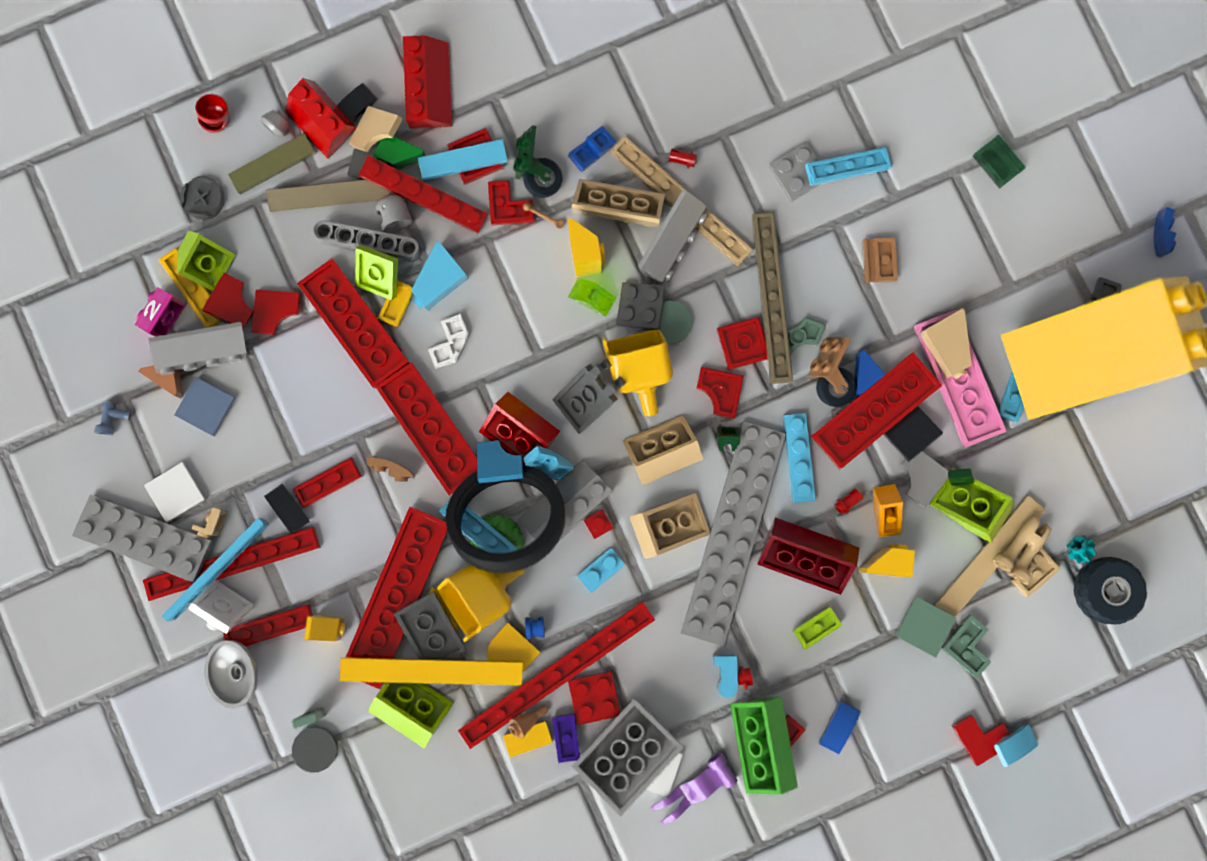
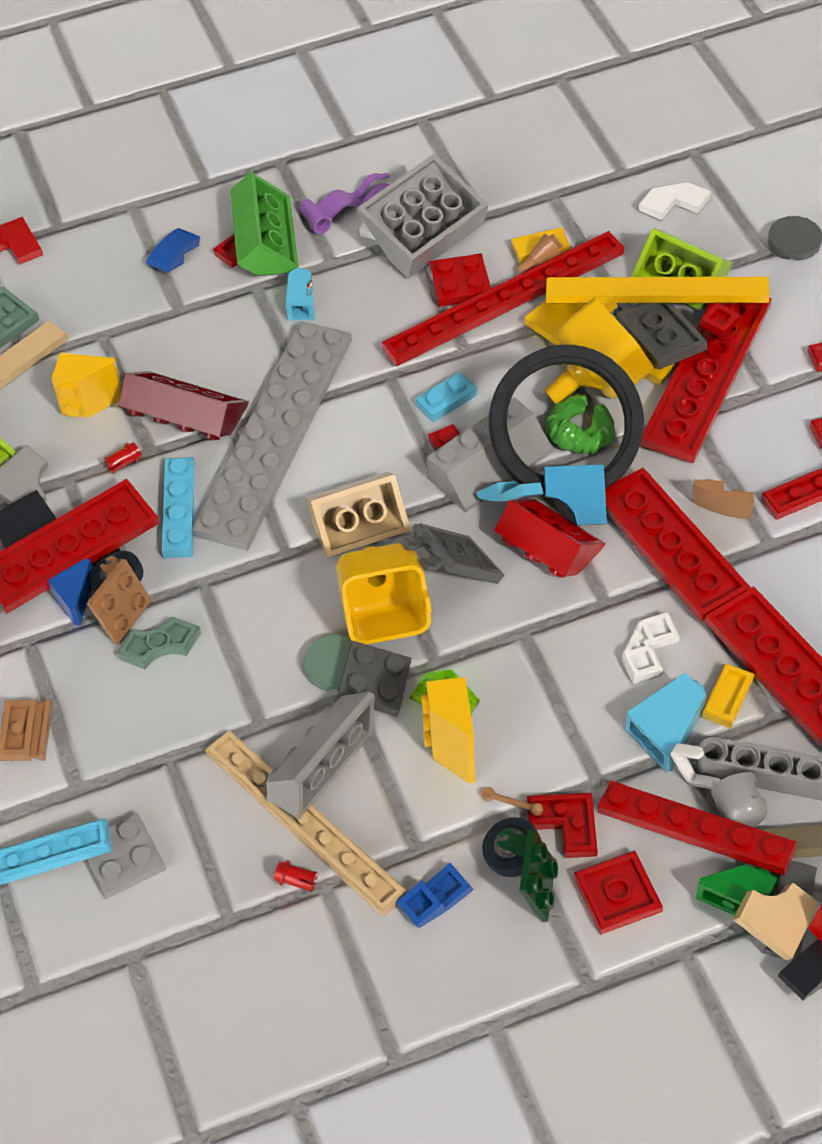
camera: 175 degrees left, 30 degrees down
(308, 718) = (803, 251): sand green tile -> none
(324, 628) = (793, 334): yellow slope -> none
(376, 272) = (757, 719): lime tile -> none
(381, 633) = (719, 320): none -> red tile
(405, 801) = (685, 195): none -> white tile
(421, 236) = (680, 755): none -> white piece
(427, 82) = (698, 1000): red slope -> none
(462, 159) = (635, 876): medium azure tile -> none
(481, 532) = (597, 417): medium azure plate -> none
(534, 627) = (530, 338): blue wheel -> none
(566, 738) = (495, 242): dark purple plate -> none
(618, 203) = (398, 792): tan slope -> none
(670, 525) = (355, 433): tan slope -> none
(722, 389) = (271, 584): red tile -> none
(728, 435) = (269, 526): dark green tile -> none
(743, 343) = (234, 637): red tile -> none
(745, 677) = (278, 291): red plate -> none
(772, 298) = (186, 690): dark tan tile -> none
(817, 628) = (184, 336): lime plate -> none
(887, 510) = (74, 448): light orange slope -> none
(925, 626) = (53, 331): sand green tile -> none

